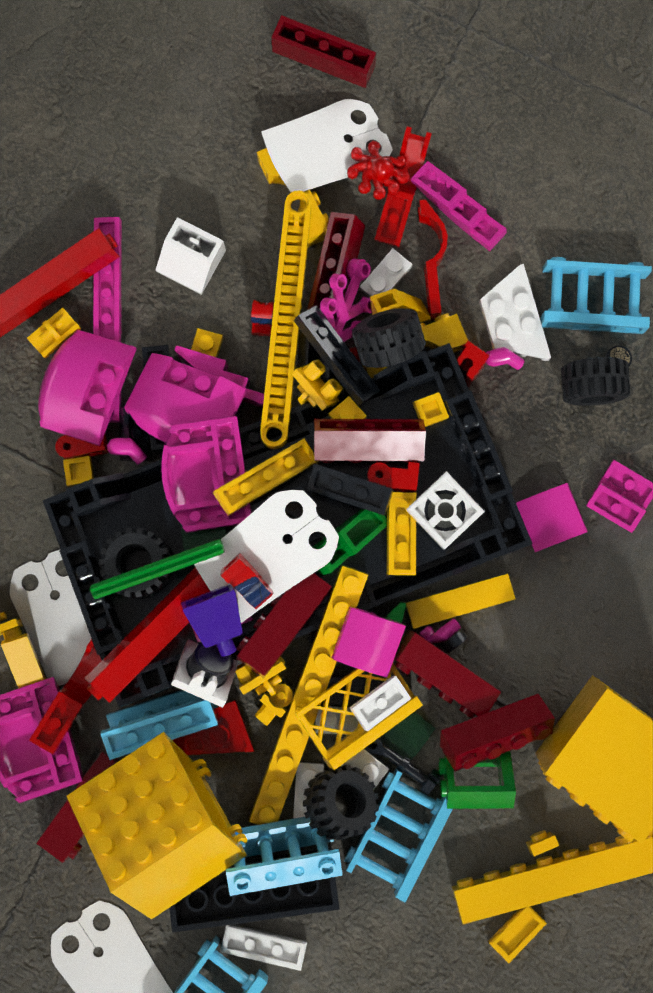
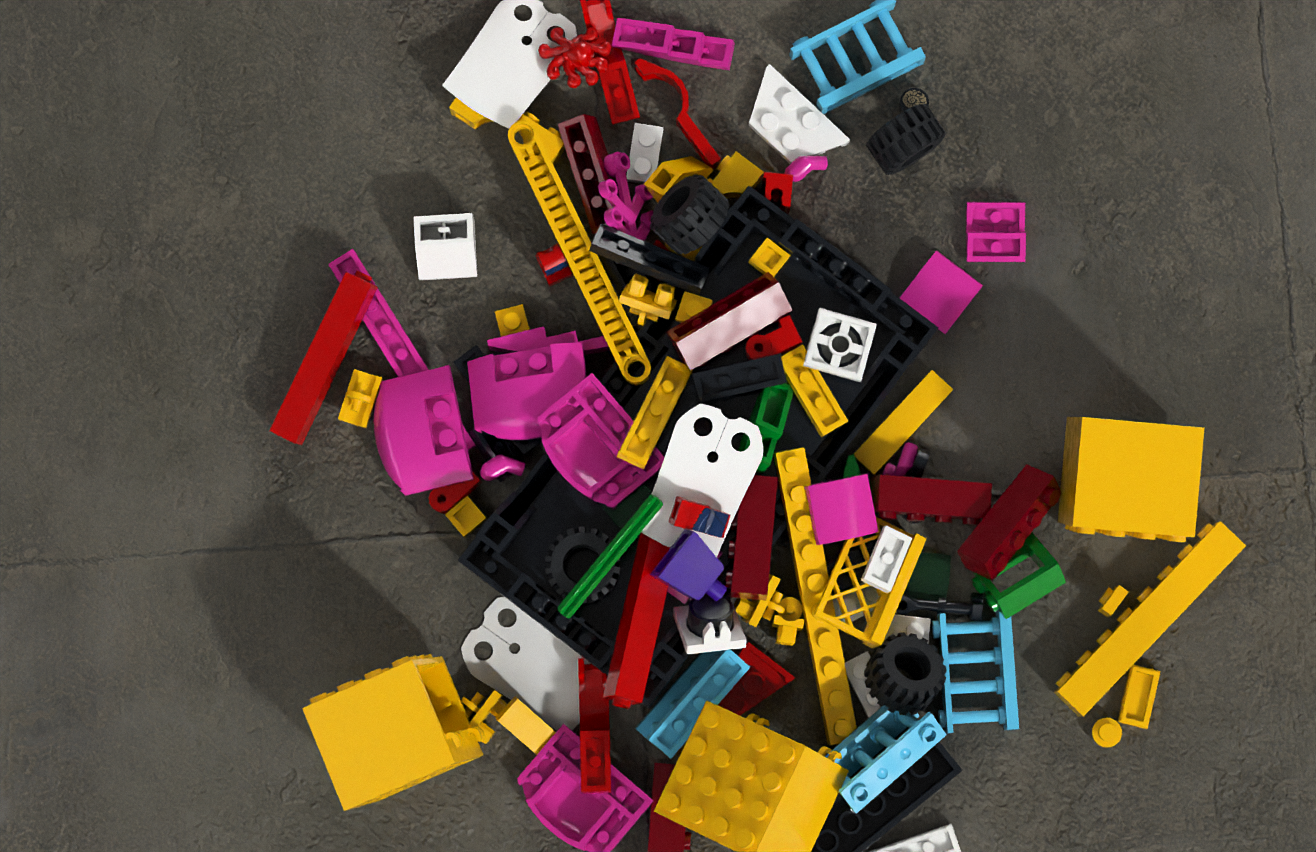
camera: 30 degrees left, 0 degrees up
(474, 946) = (1106, 732): none -> yellow plate

